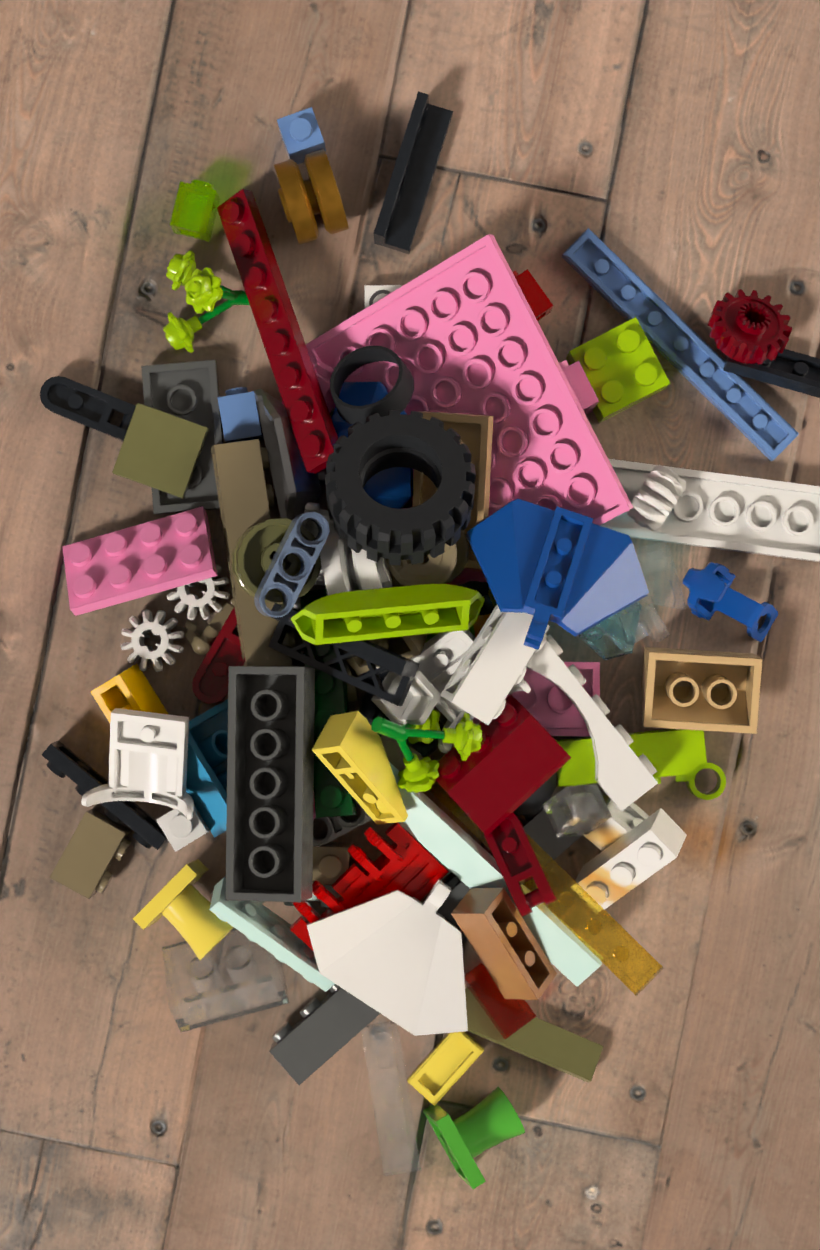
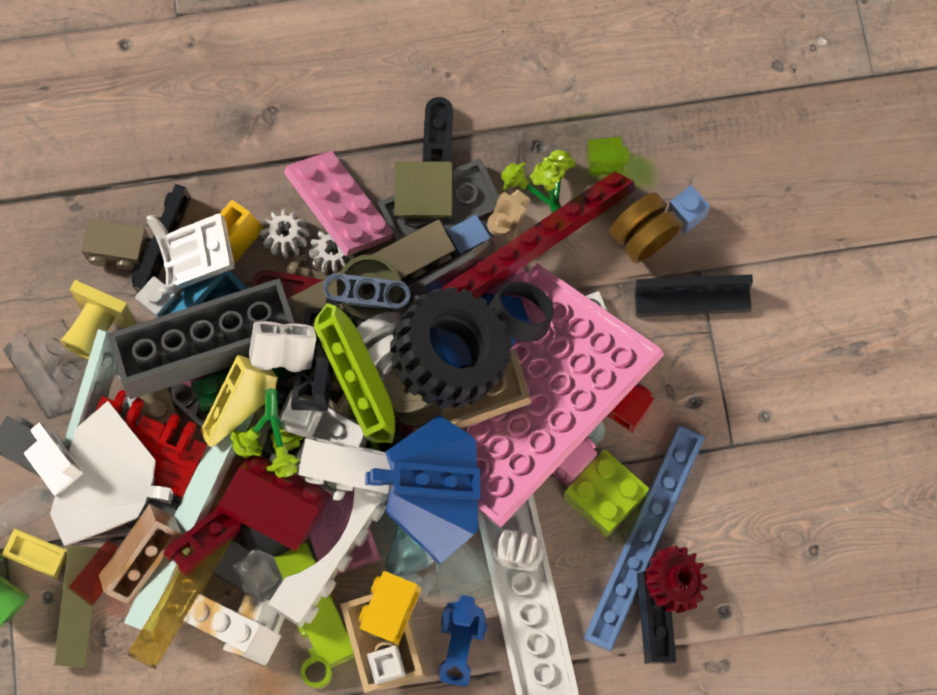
camera: 70 degrees right, 15 degrees down
(232, 358) = (508, 214): none -> tan hips
(322, 691) = (282, 346): none -> white brick
(351, 1013) = (52, 460): none -> white panel
(676, 670) = (389, 607): none -> yellow brick
(737, 697) = (386, 665): none -> white tile

